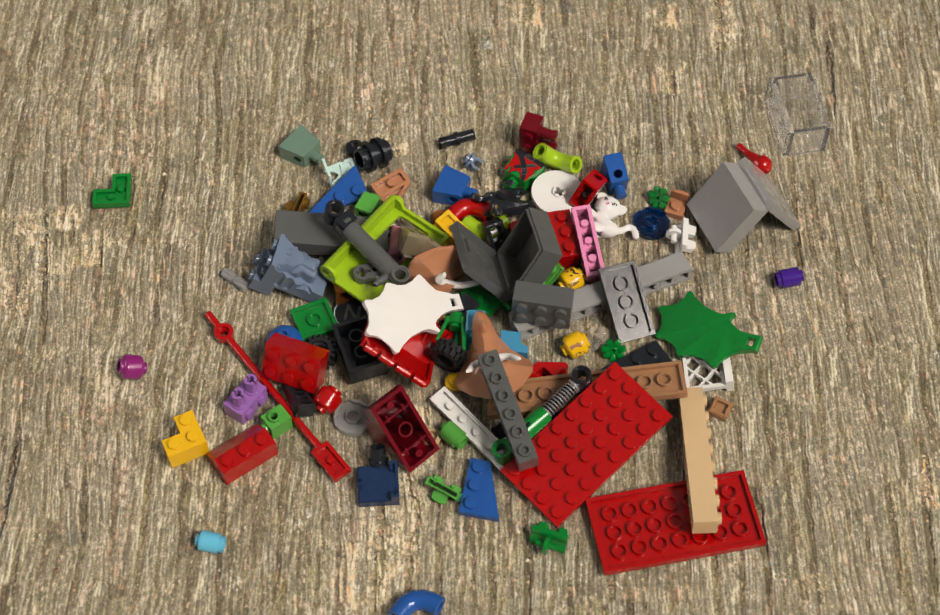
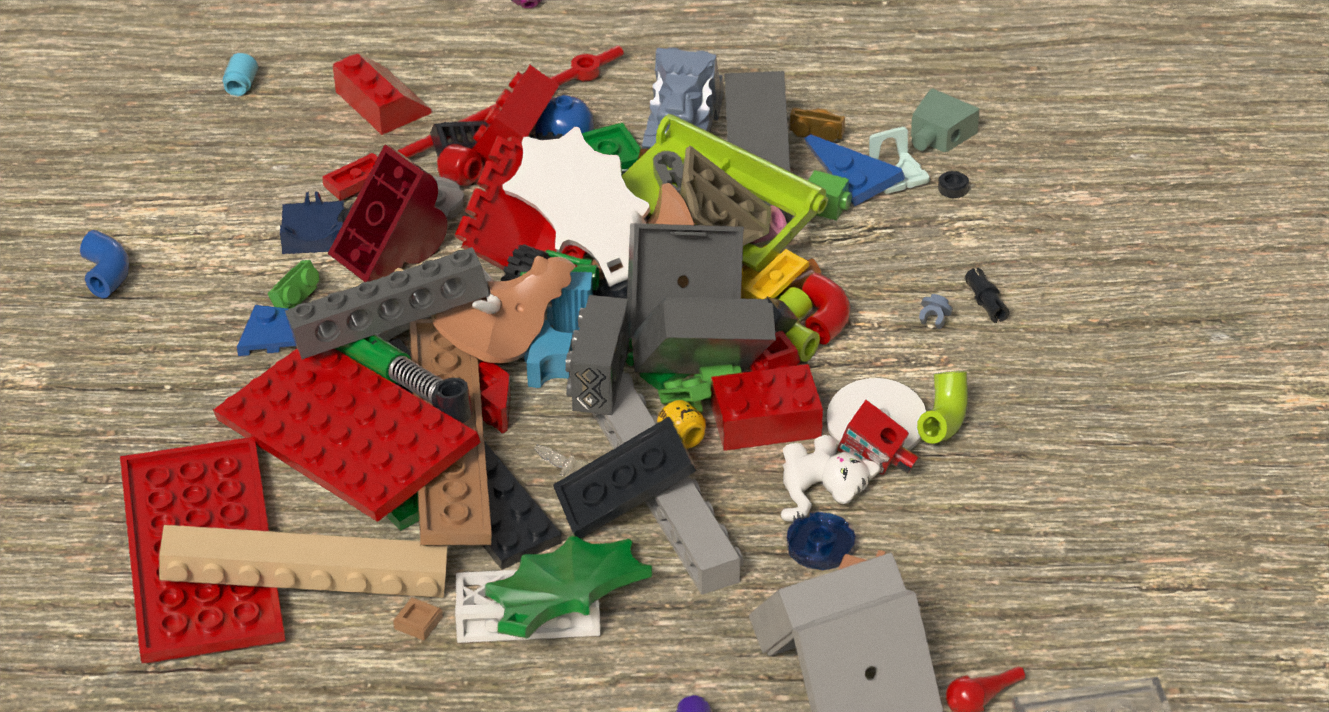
camera: 90 degrees right, 15 degrees down
(188, 443) = (406, 43): yellow brick -> none
(246, 399) = (463, 86): medium lavender brick -> none
(276, 421) = (422, 115): bright green brick -> none
(346, 226) = (738, 122): dark grey piece -> none
(373, 153) = (930, 191): black piece -> none
(393, 183) = (867, 221): nougat wing -> none
(452, 187) = (876, 286): blue torso -> none
(504, 202) = (836, 341): black animal -> none
(522, 170) = (915, 363): torso -> none
(533, 132) = (992, 370): dark red brick -> none
(549, 539) = (187, 396): green hips -> none
(575, 344) = (550, 428): yellow head -> none
(588, 242) = (749, 431): bright pink brick -> none
(613, 349) = (541, 478): green plant -> none
(616, 173) = (912, 477): blue torso -> none
(658, 197) = (873, 544): green plant -> none
(679, 235) = (783, 569): white hips -> none

